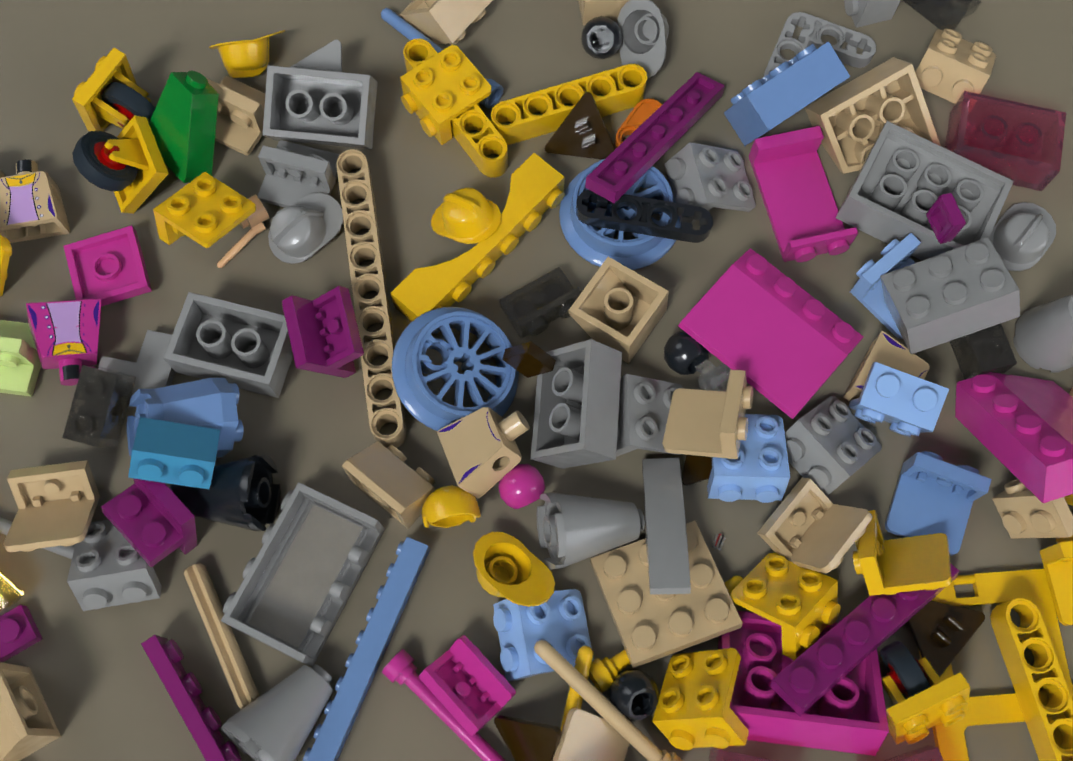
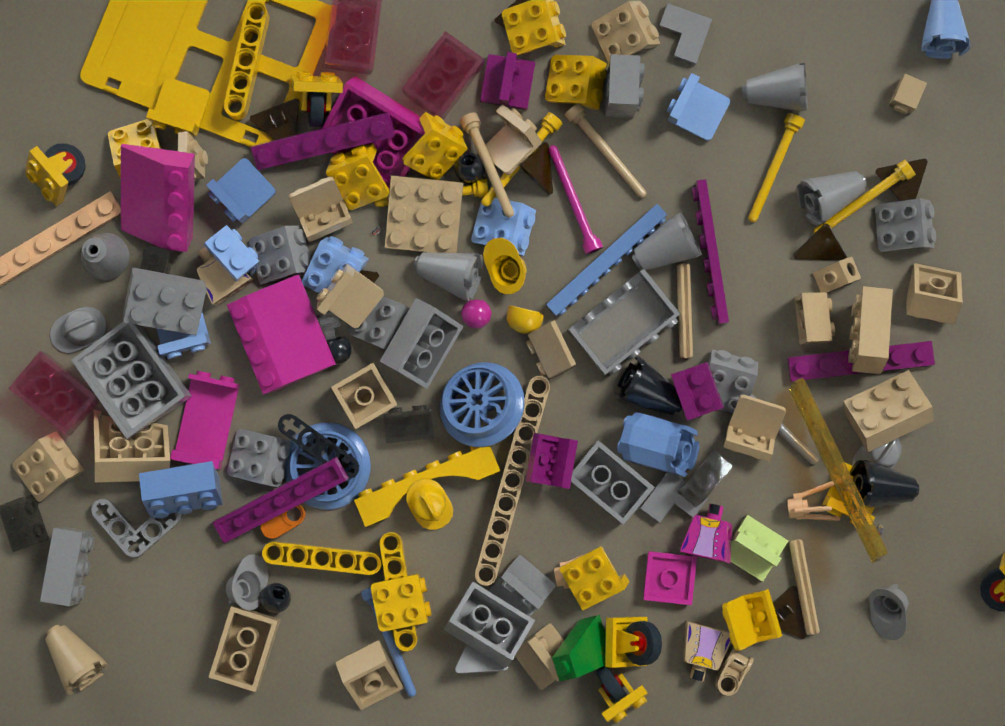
camera: 155 degrees left, 15 degrees up
(174, 453) = (668, 415): dark azure brick -> none
(245, 57) = (519, 700): yellow piece -> none
(304, 227) = (533, 549): light grey piece -> none
(467, 685) = (558, 216): dark pink bracket -> none
(482, 448) = (489, 344): tan torso -> none
(529, 359) = (436, 384): dark brown tile -> none
(582, 132) = (324, 531): dark brown piece -> none
(665, 527) = (406, 249): light grey slope -> none
(902, 562) = (284, 166): yellow bracket -> none
(945, 218) = (138, 349): magenta tile -> none

